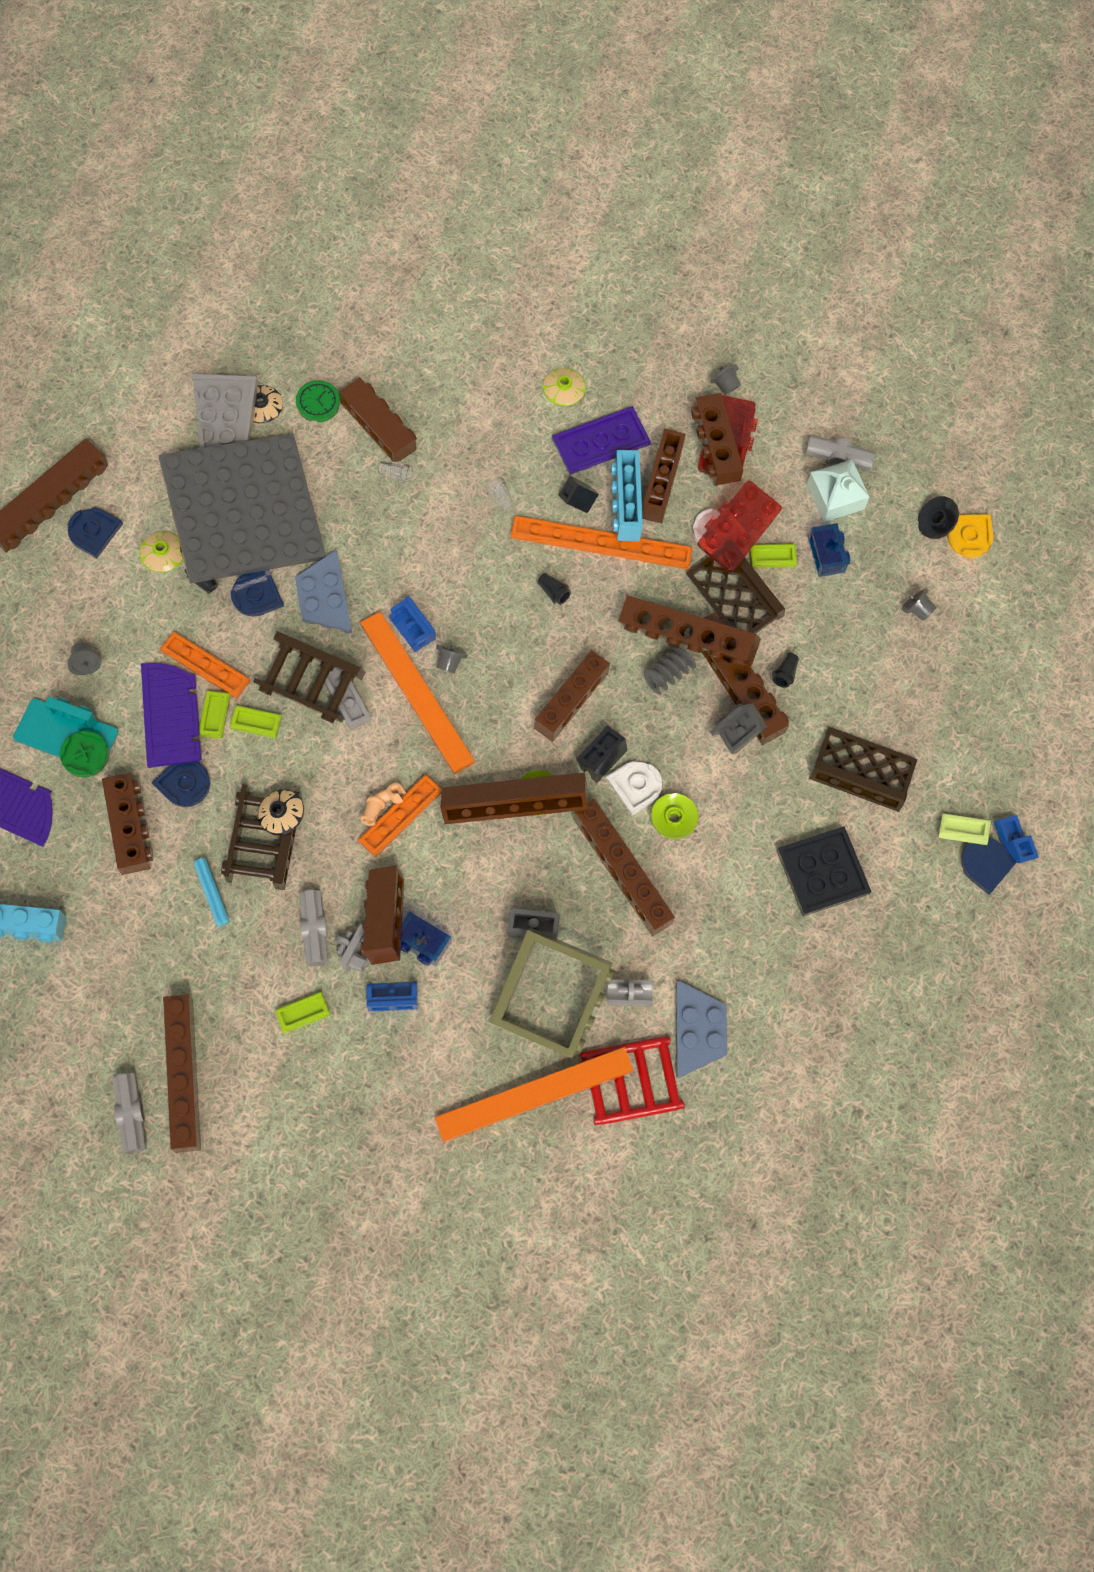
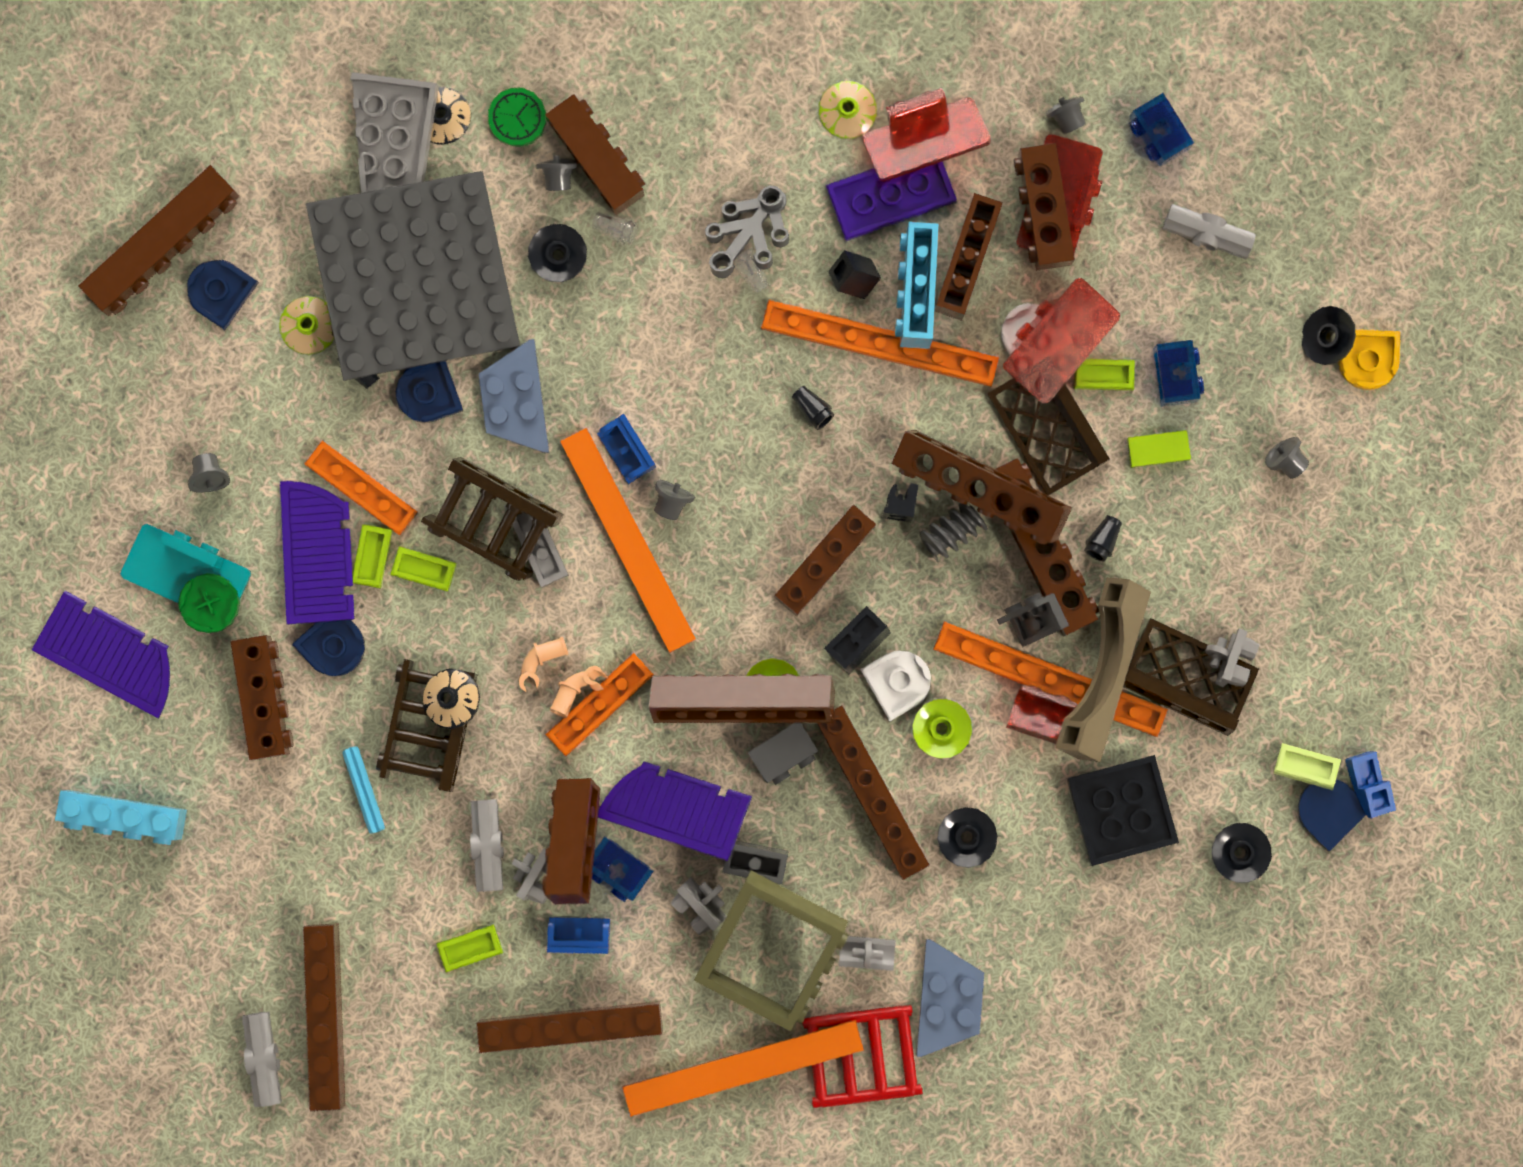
camera: 10 degrees right, 15 degrees up
(349, 434) = (557, 173): none -> dark grey piece
(349, 780) = (538, 655): none -> light nougat piece
(350, 481) = (555, 238): none -> black dish
(388, 1068) = (569, 1027): none -> reddish brown brick
(467, 888) = (677, 809): none -> dark purple piece
(482, 957) = (703, 901): none -> light grey hips
(511, 448) = (749, 228): none -> plant
(550, 841) = (783, 752): none -> dark grey brick
(622, 394) = (924, 134): none -> clear red bracket
(627, 650) = (901, 509): none -> black hinge
(705, 887) = (983, 837): none -> black dish
(752, 800) = (1039, 713): none -> clear red bracket
(756, 776) = (1036, 672): none -> orange tile
(790, 803) = (1121, 616): none -> dark tan arch
(796, 387) = (1160, 114): none -> clear blue brick
(820, 605) = (1158, 449): none -> lime tile
(837, 490) = (1199, 288): light aqua piece -> none
(899, 741) = (1238, 646): none -> light grey hips
(929, 889) = (1256, 857): none -> black dish

